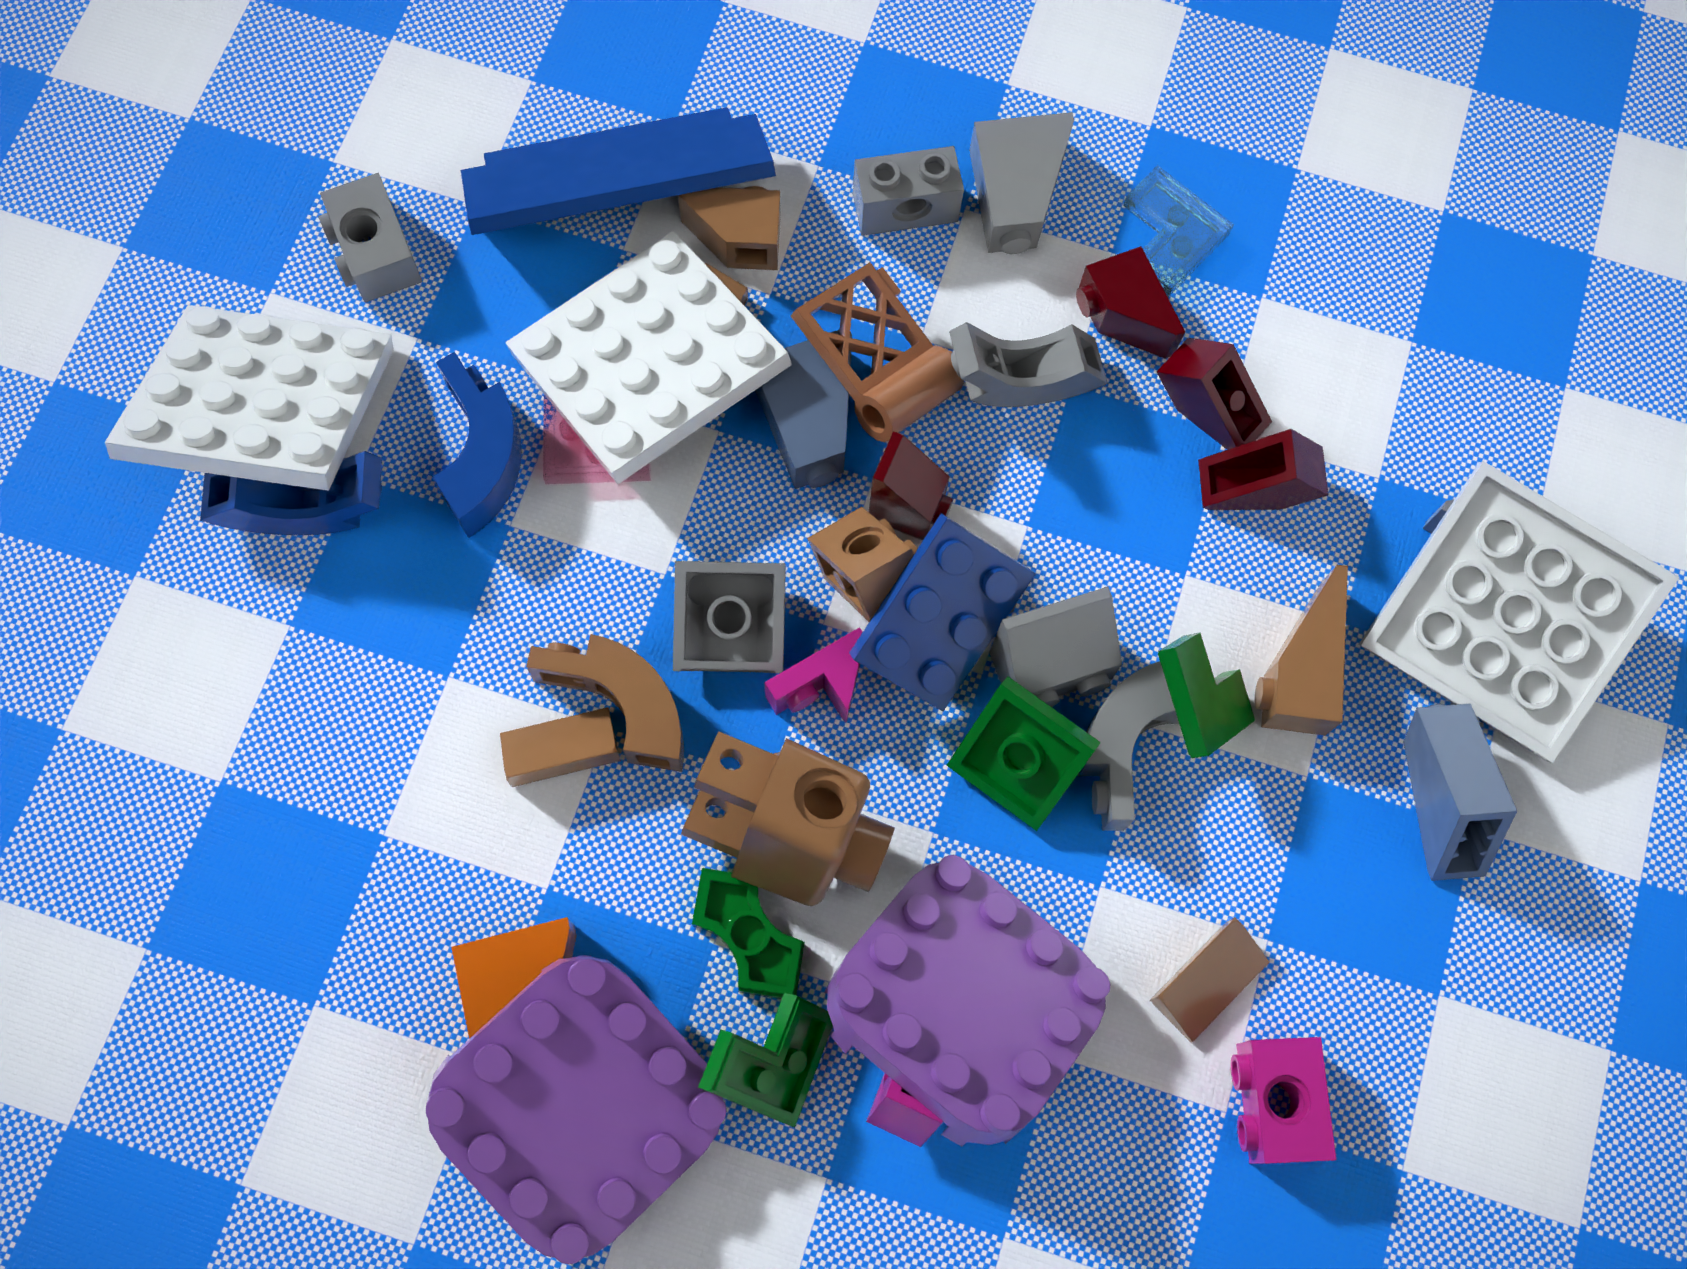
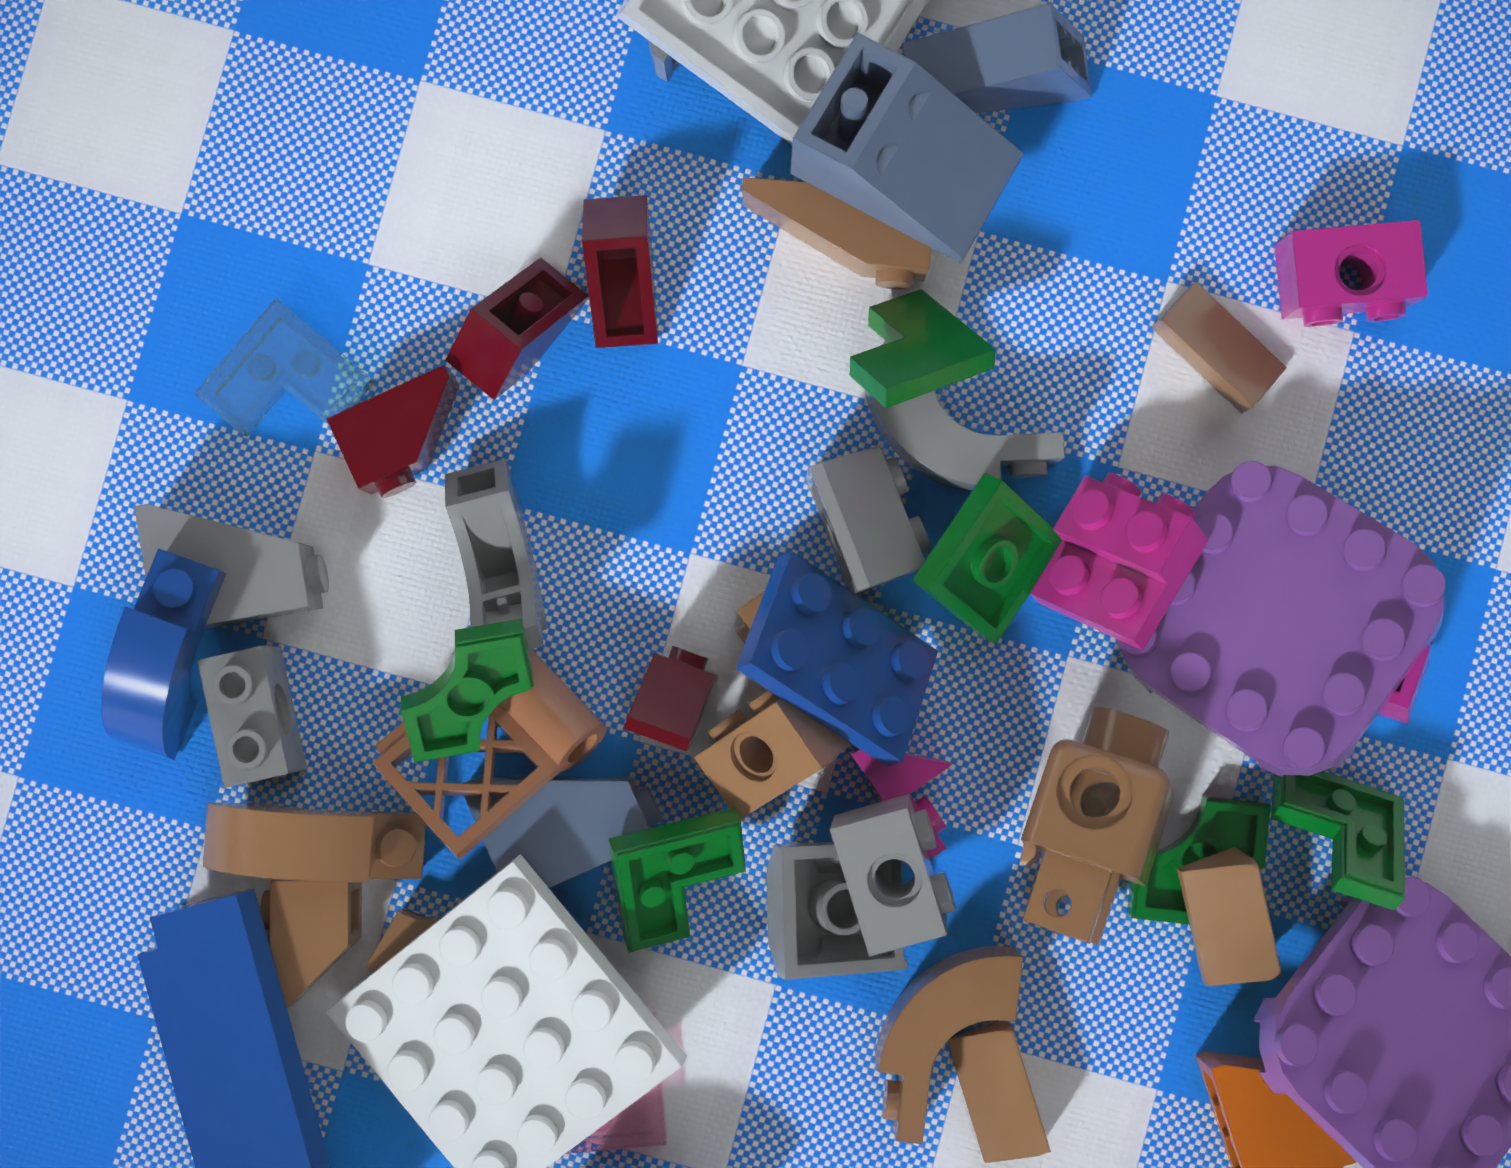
camera: 85 degrees left, 15 degrees up
(696, 947) = (1229, 919): none -> medium nougat slope
(731, 633) = (886, 912): none -> light grey brick
(774, 473) = (661, 861): none -> green tile
(805, 229) = (313, 843): none -> medium nougat arch
(944, 332) = (484, 671): none -> green tile
(959, 115) = (153, 653): none -> blue arch
(1023, 866) = (1119, 558): none -> dark pink plate
(1380, 685) = (903, 149): none -> sand blue slope

